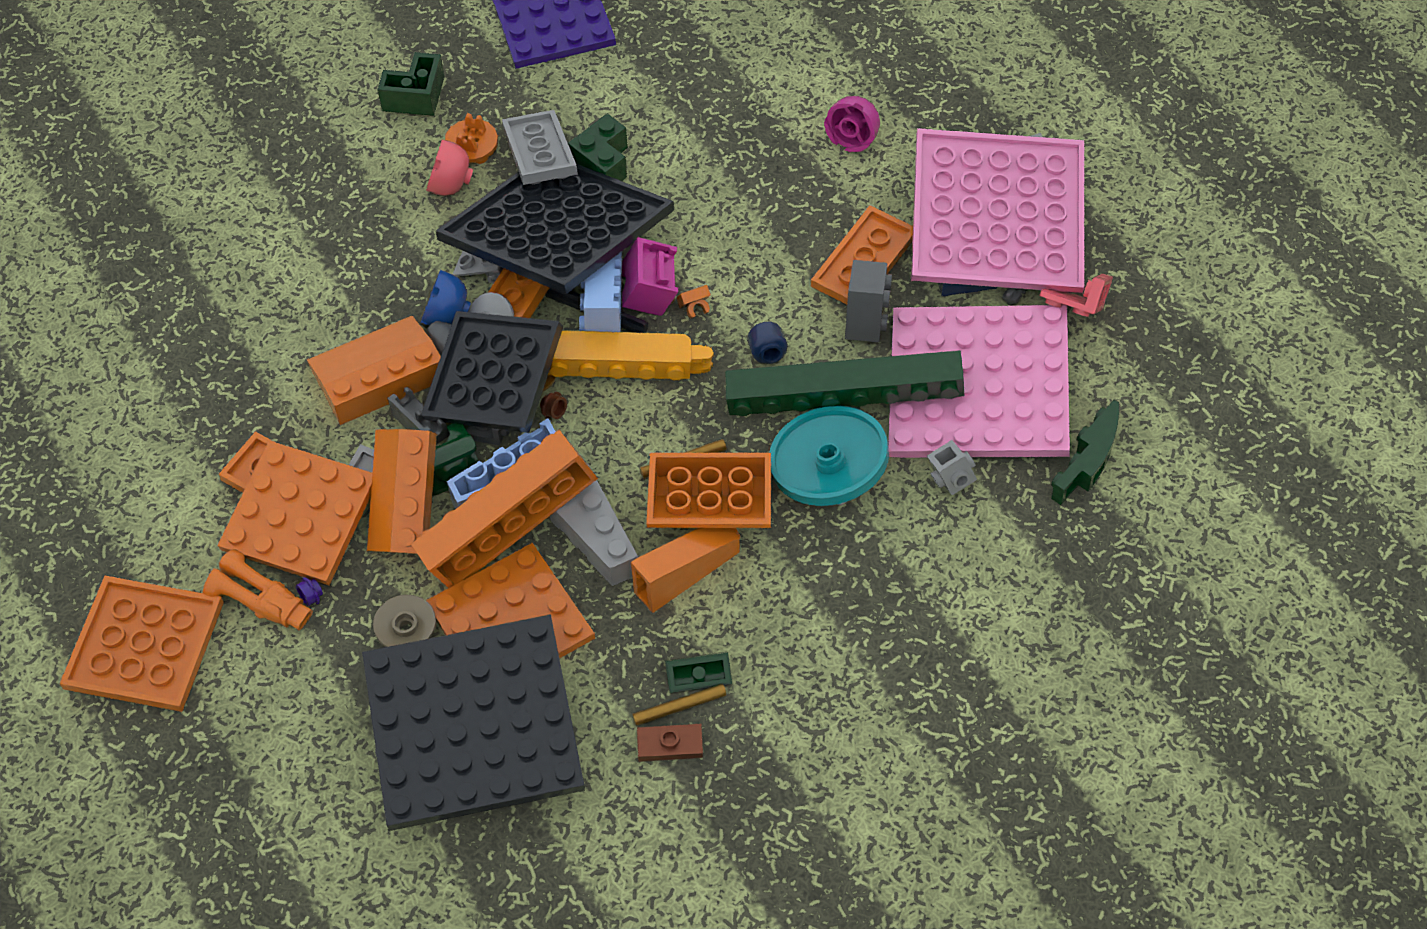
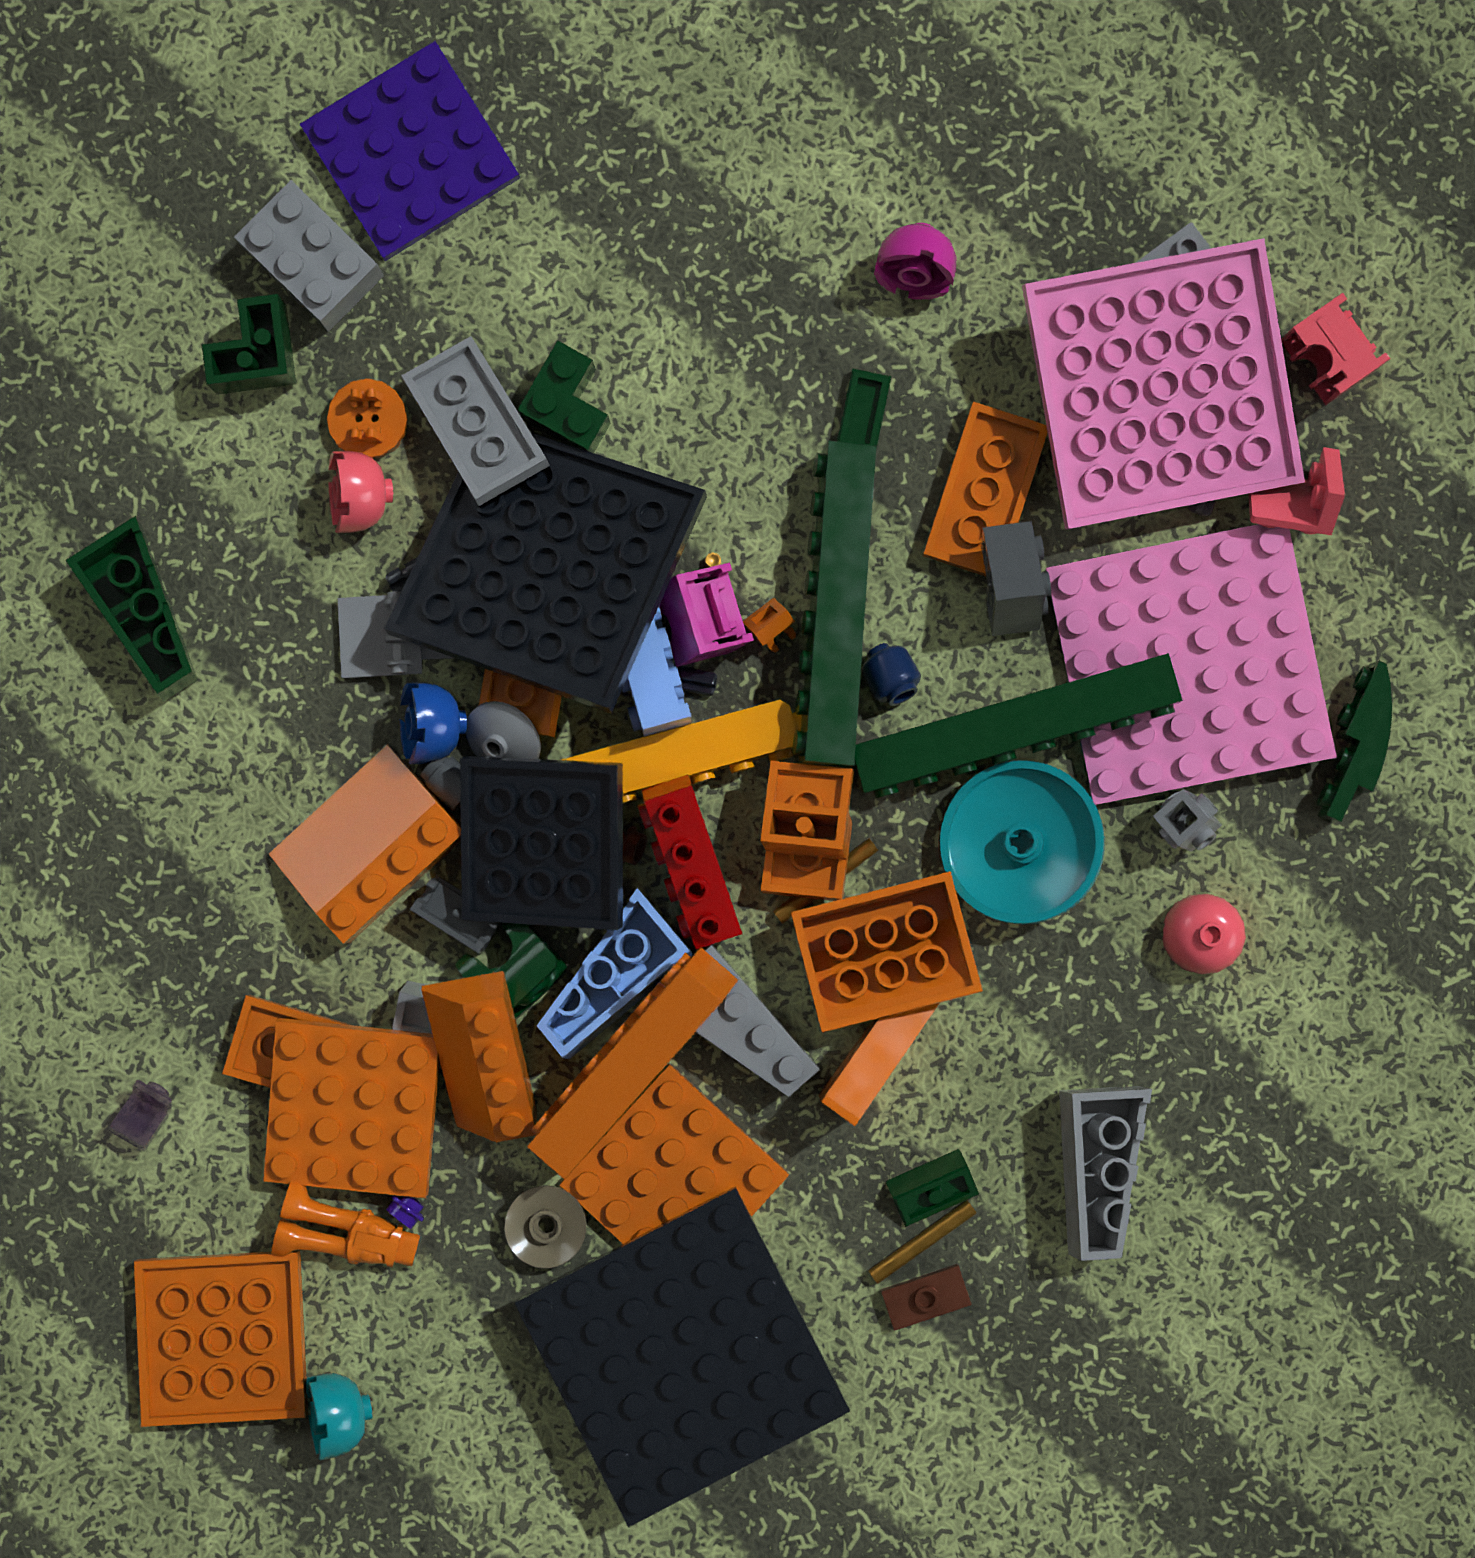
camera: 15 degrees left, 30 degrees up
(153, 488) = (142, 1114): none -> clear purple bracket
(203, 706) = (336, 1414): none -> teal cylinder
(279, 190) = (132, 598): none -> dark green wedge
(427, 256) = (365, 644): none -> light grey hinge
(469, 50) = (309, 255): none -> light grey brick
(590, 408) = (691, 862): none -> red brick
(677, 409) = (806, 830): none -> orange bracket
(739, 293) = (836, 605): none -> dark green brick
(795, 202) = (864, 408): none -> dark green tile
(830, 665) = (1099, 1165): none -> light grey wedge
(947, 548) = (1203, 934): none -> coral cylinder
(1122, 224) = (1335, 348): none -> coral piece

